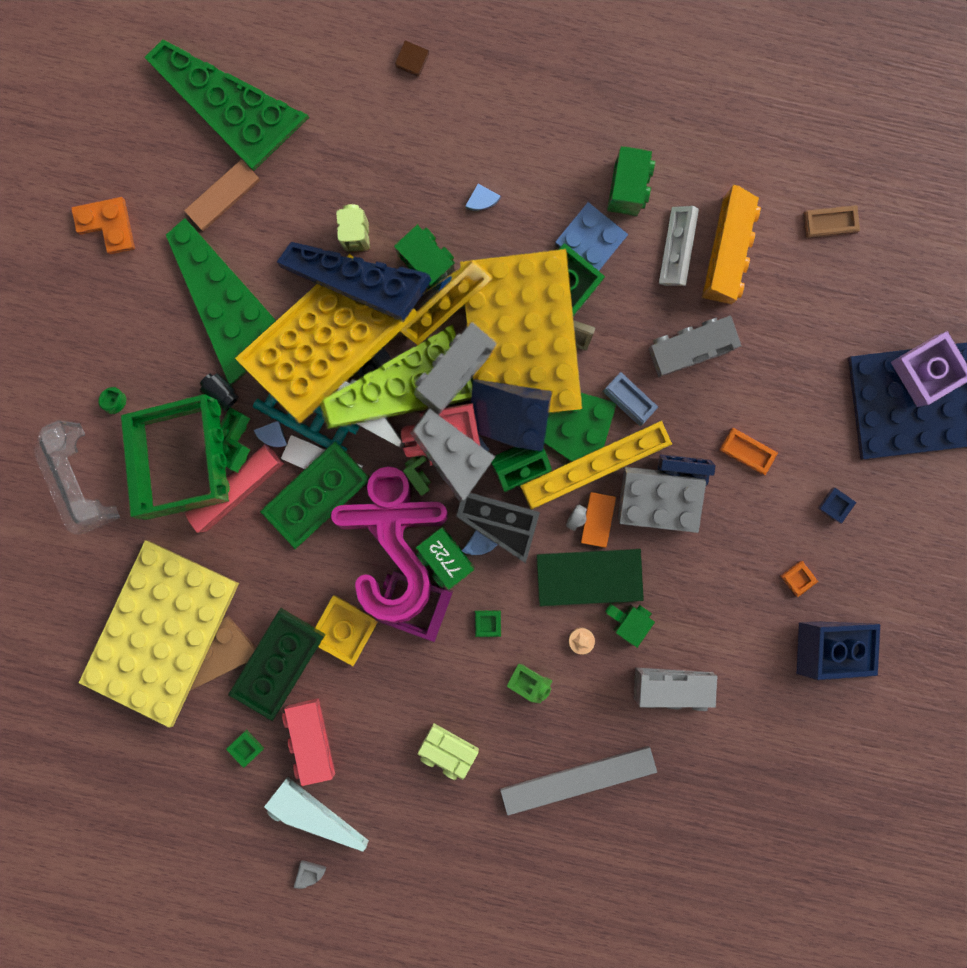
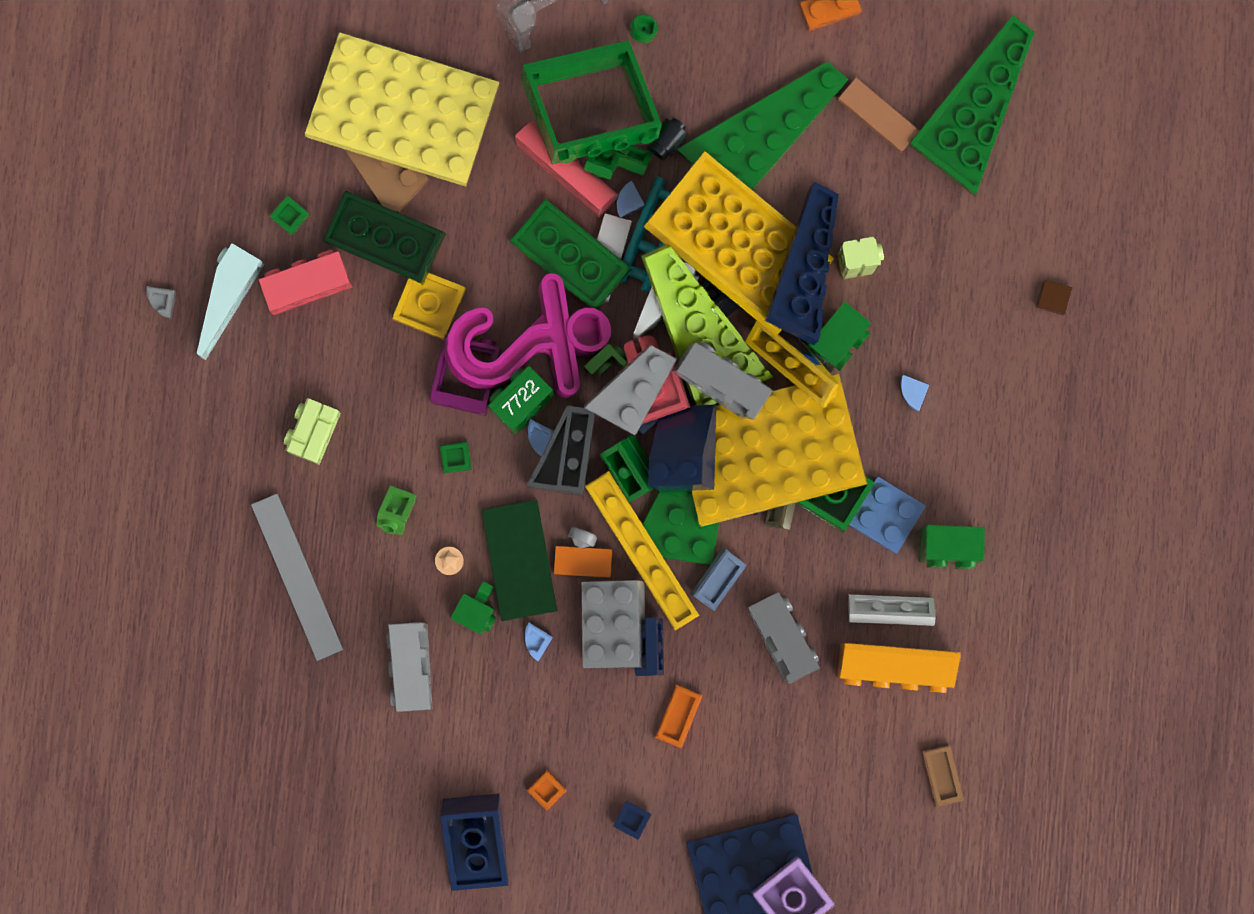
camera: 80 degrees right, 5 degrees down
(664, 570) = (536, 641): none -> light blue tile

